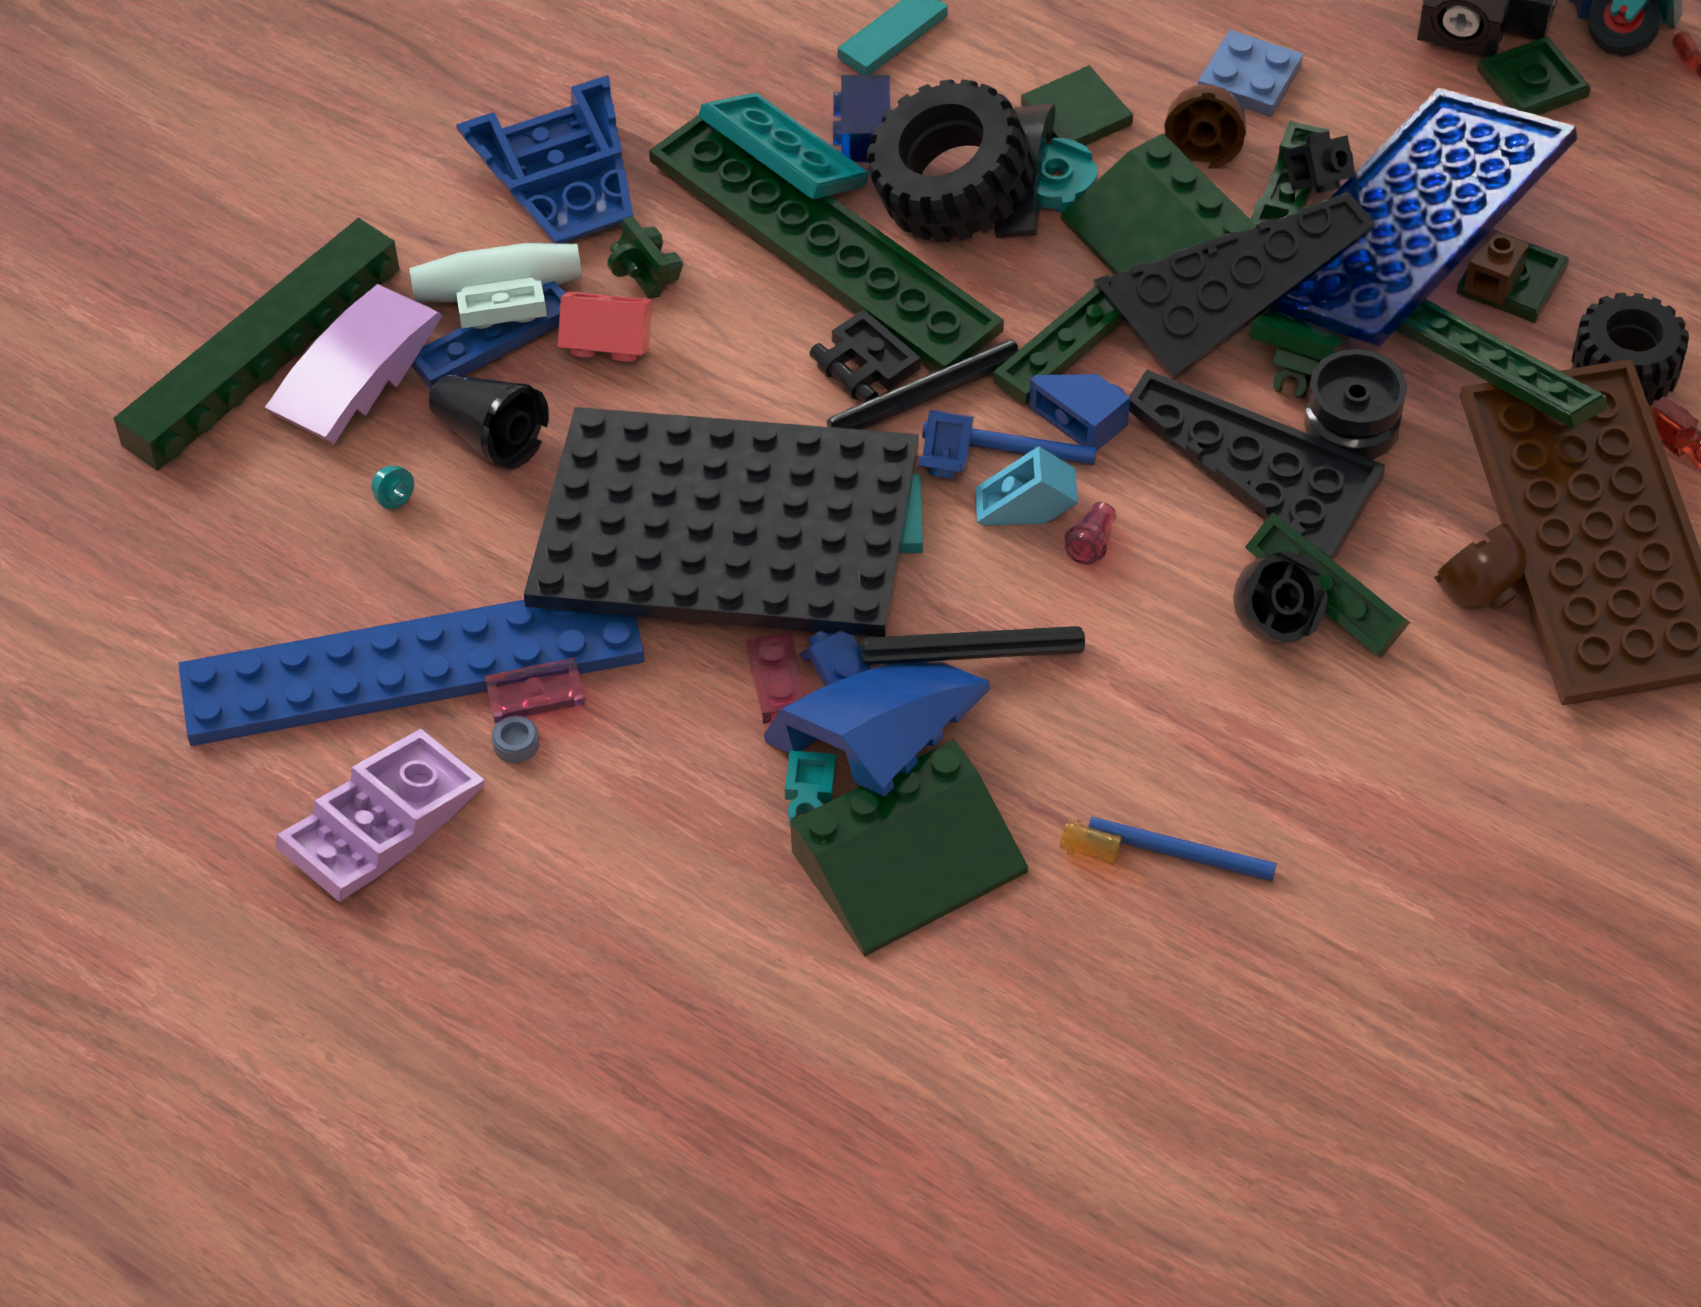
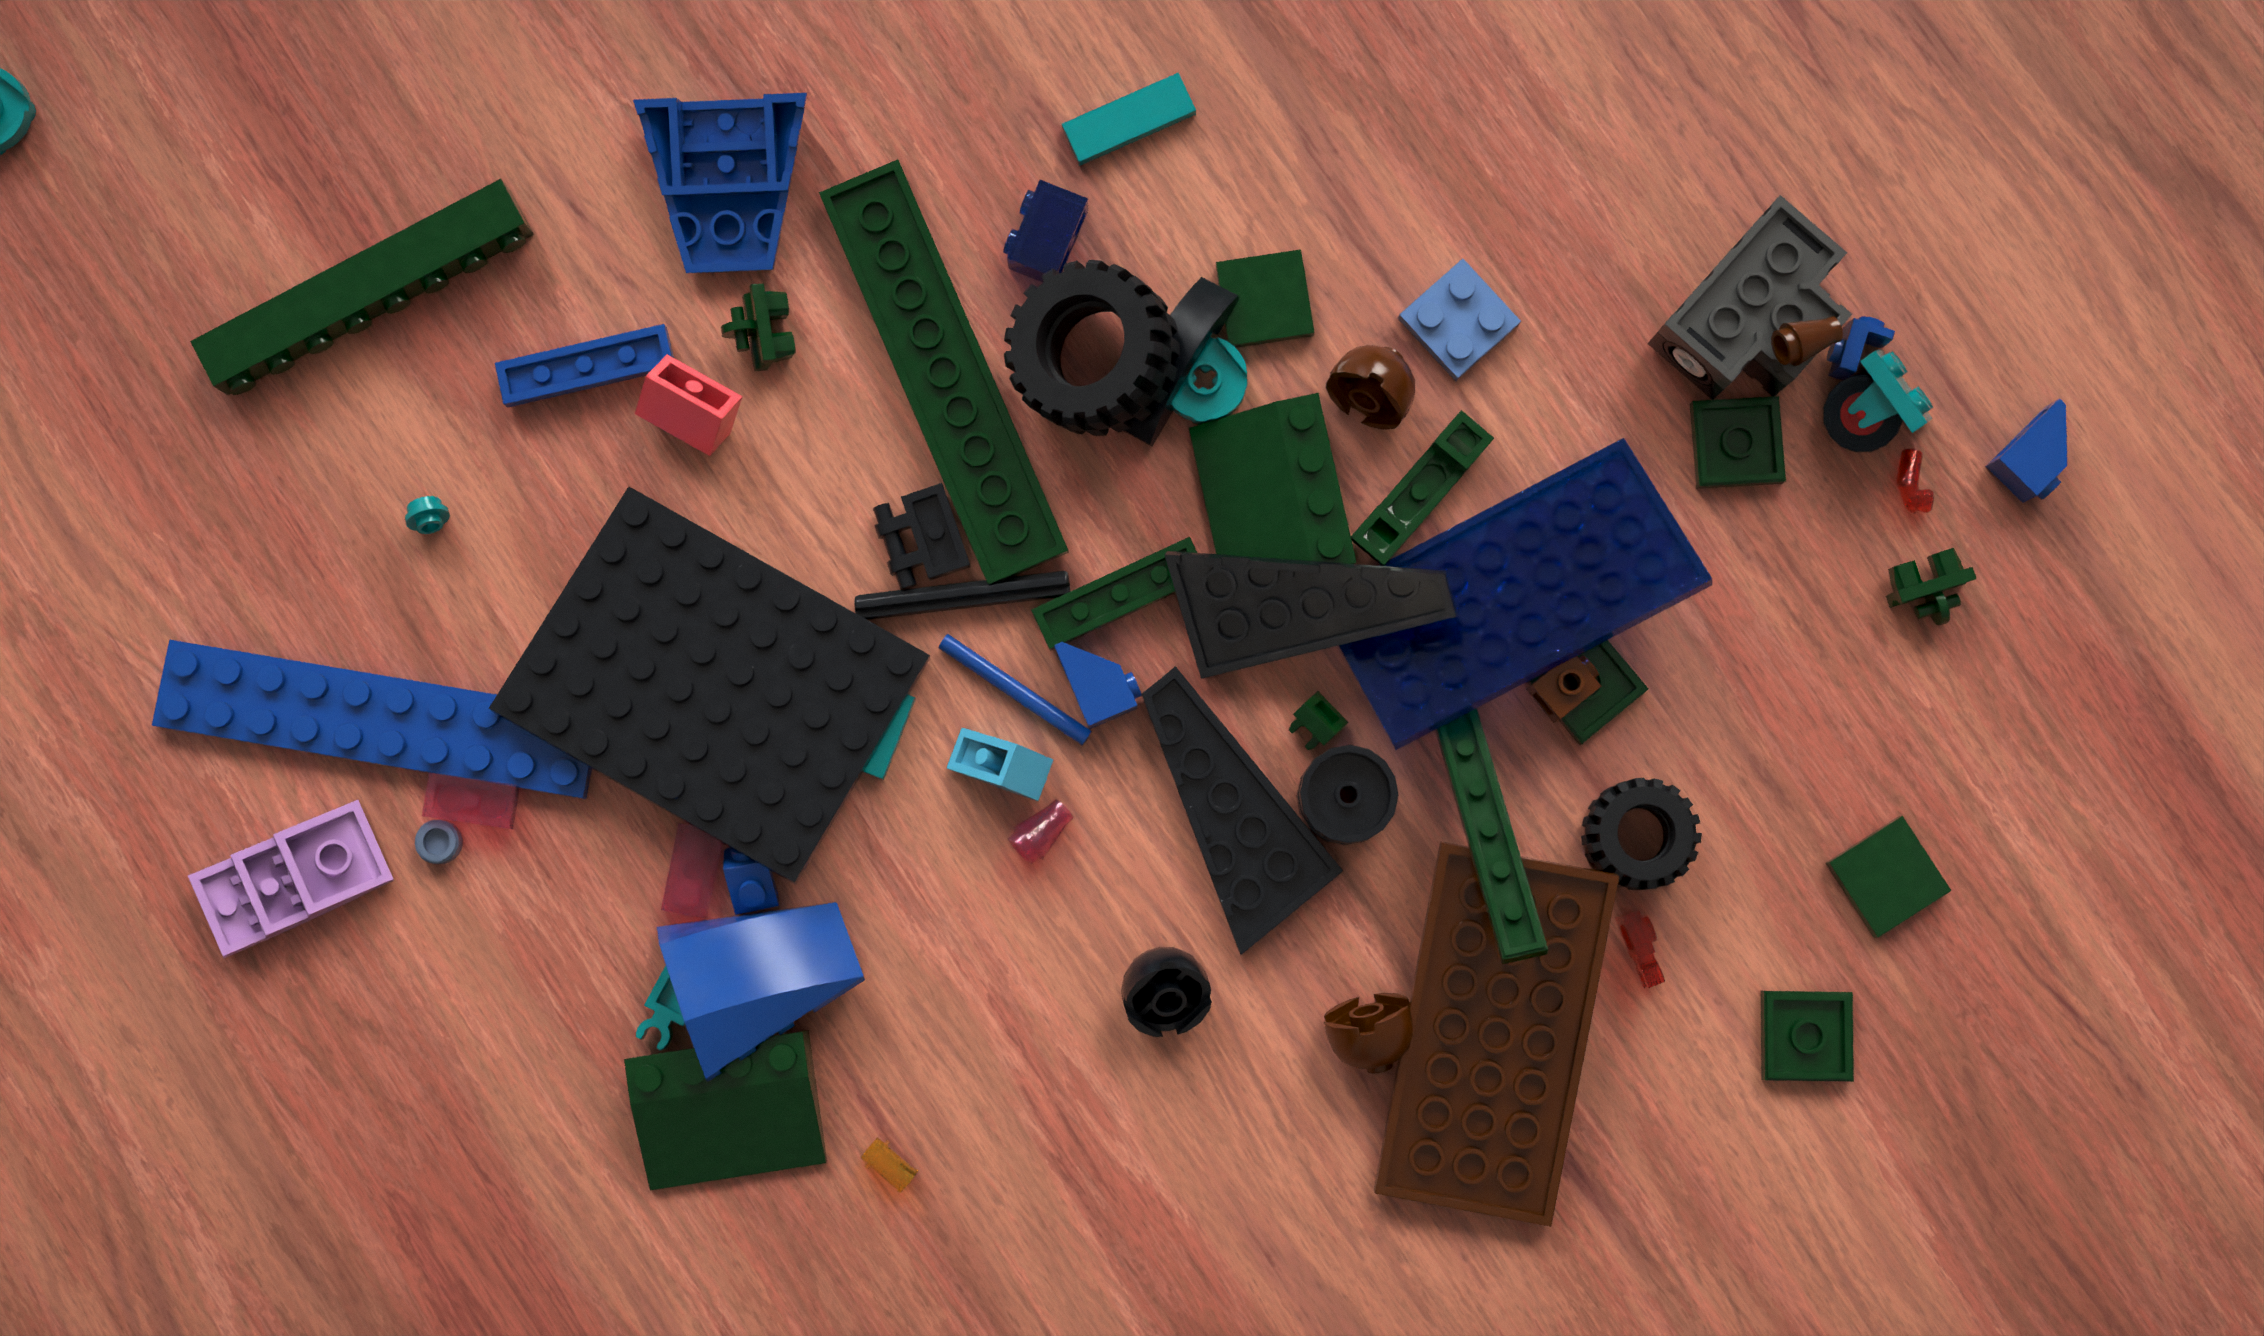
camera: 20 degrees right, 30 degrees up
(353, 362) = (439, 354): lavender slope -> none
(492, 416) = (538, 475): black cone -> none
(497, 281) = (606, 312): light aqua plate -> none
(784, 145) = (951, 239): teal tile -> none
(947, 443) = (948, 680): blue bracket -> none
(972, 645) = (874, 917): black axle -> none
(1188, 850) = (966, 1199): blue bar -> none
(1297, 335) = (1330, 693): dark green tile -> none
(1320, 162) = (1456, 489): black brick -> none
(1348, 599) = (1232, 996): dark green plate -> none

